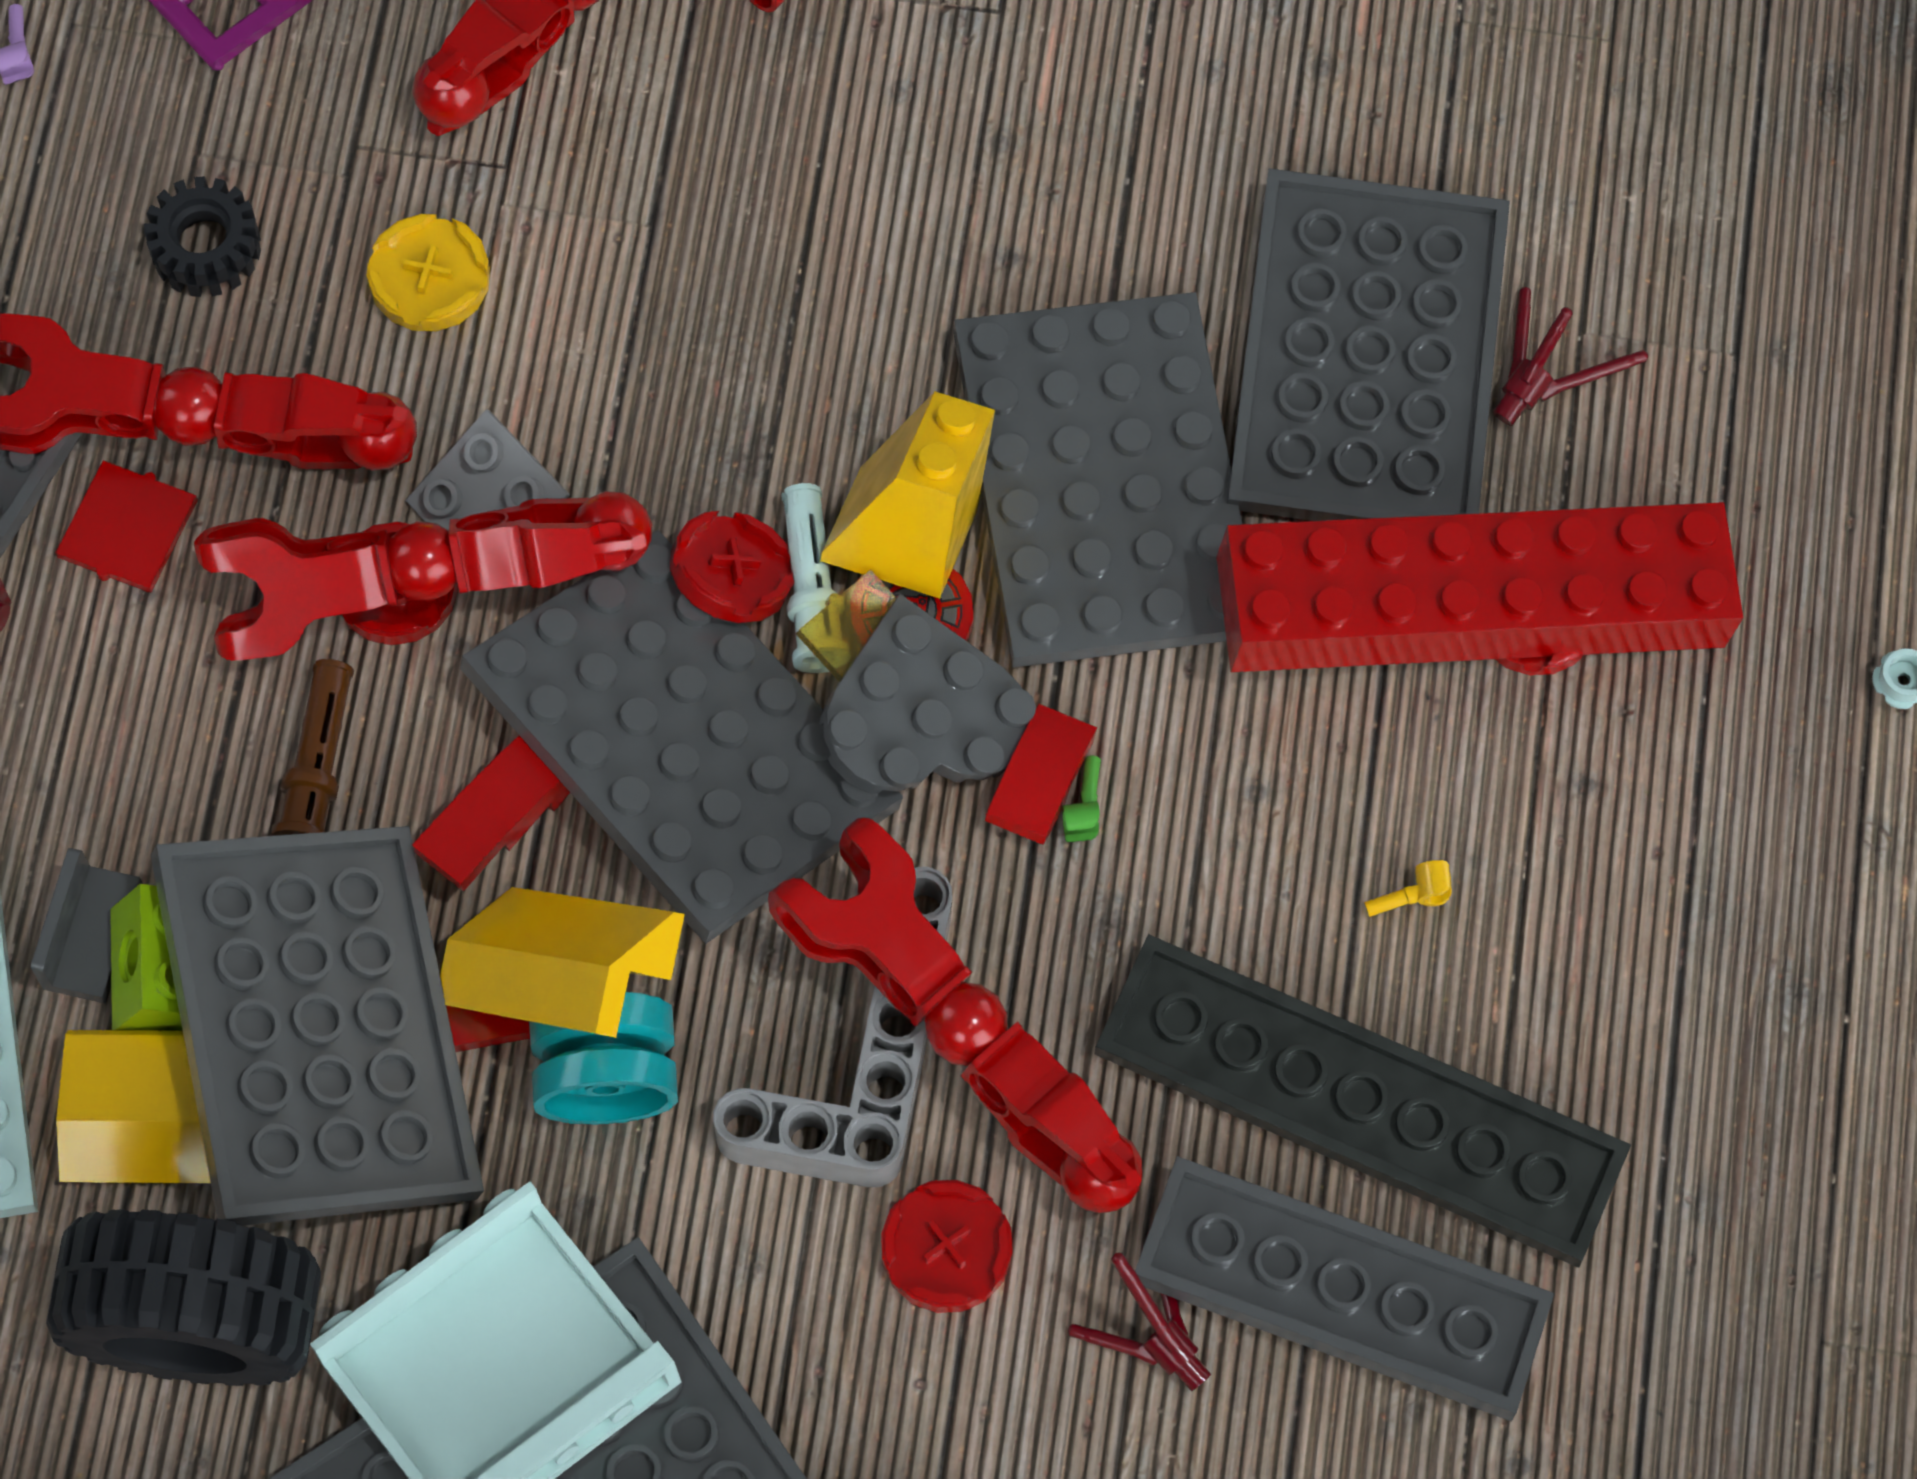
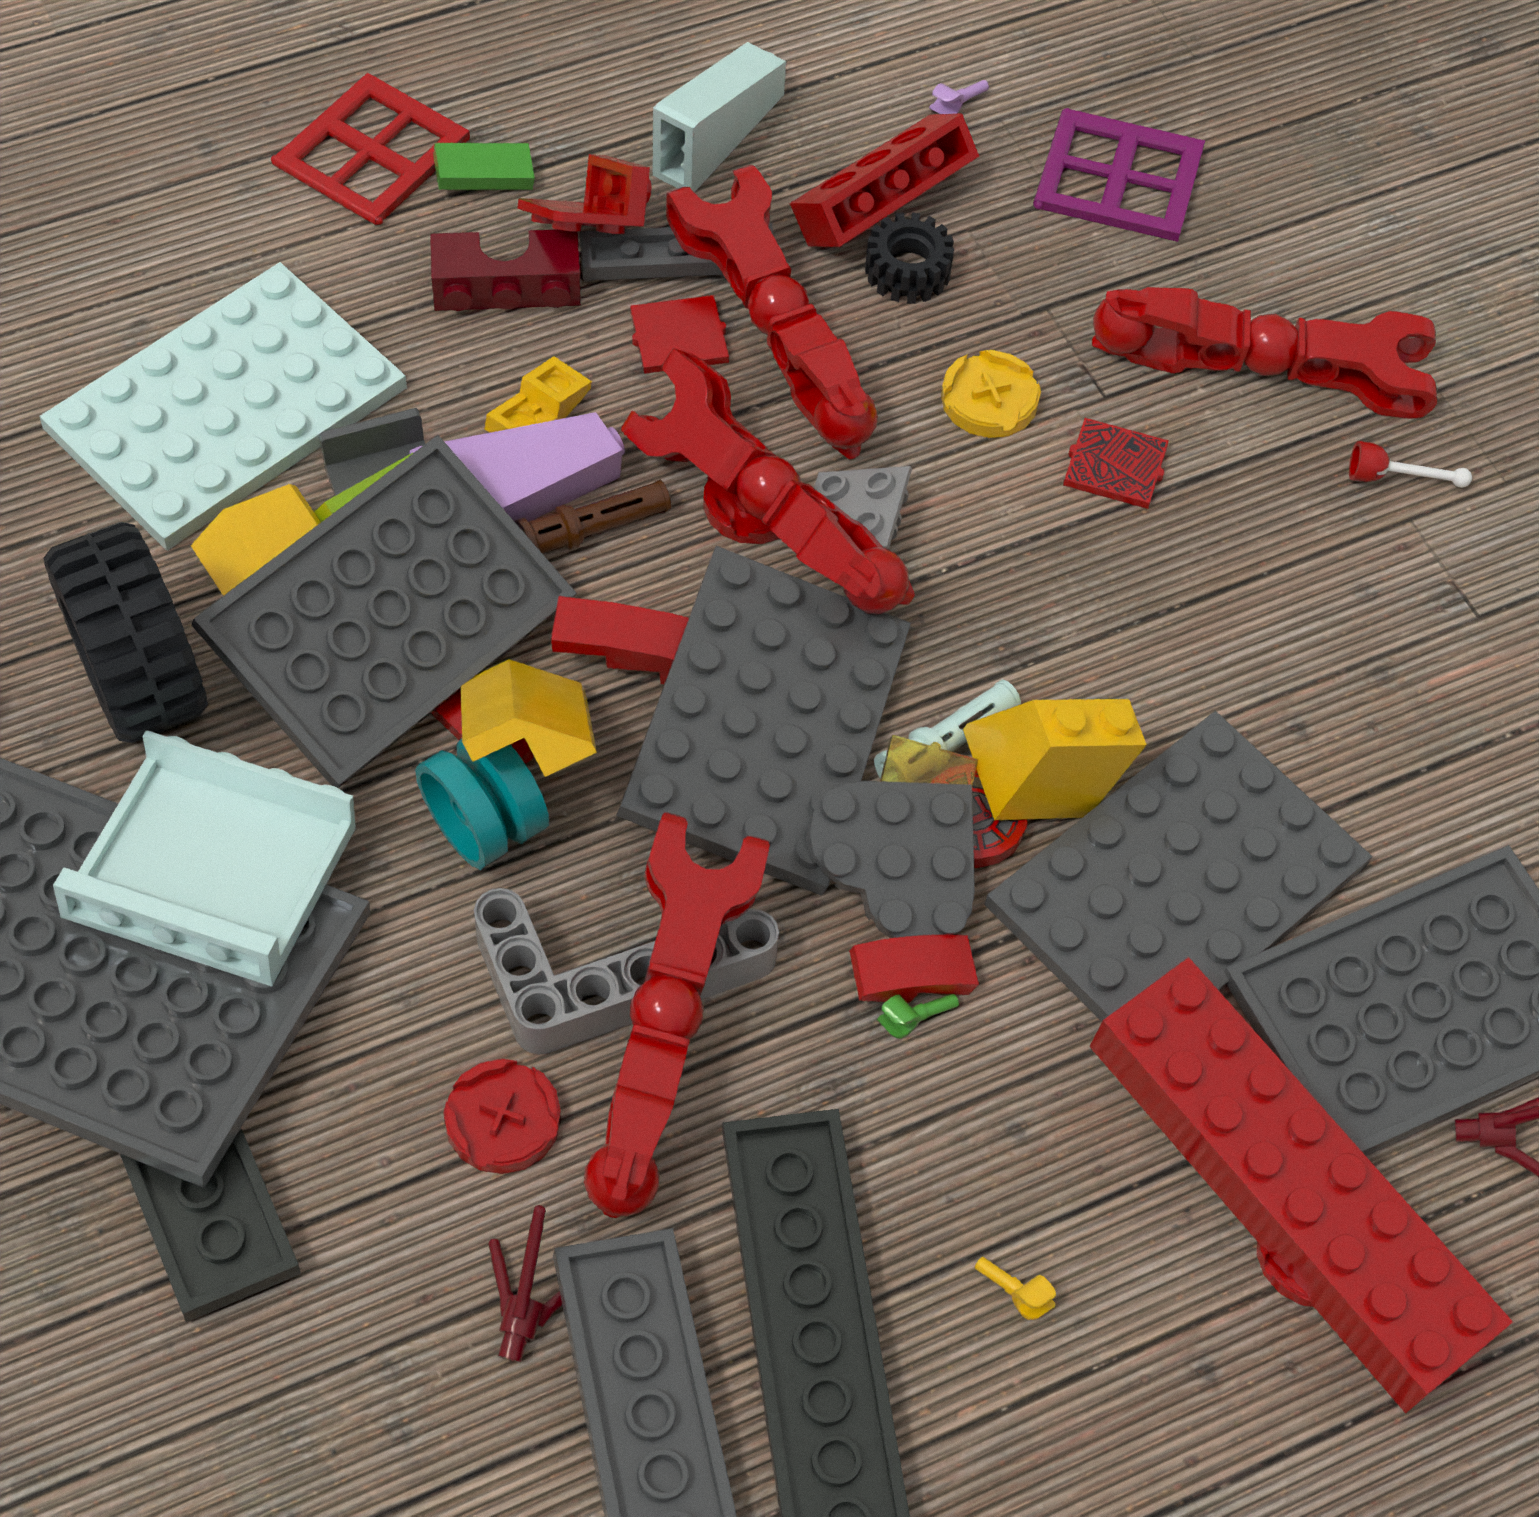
camera: 55 degrees right, 10 degrees down
(91, 195) = (884, 180): none -> red brick
(123, 724) = (544, 396): none -> yellow slope
(213, 772) = (542, 463): none -> lavender slope
(596, 212) = (1116, 463): none -> red piece
(732, 567) = (916, 678): red tile -> none

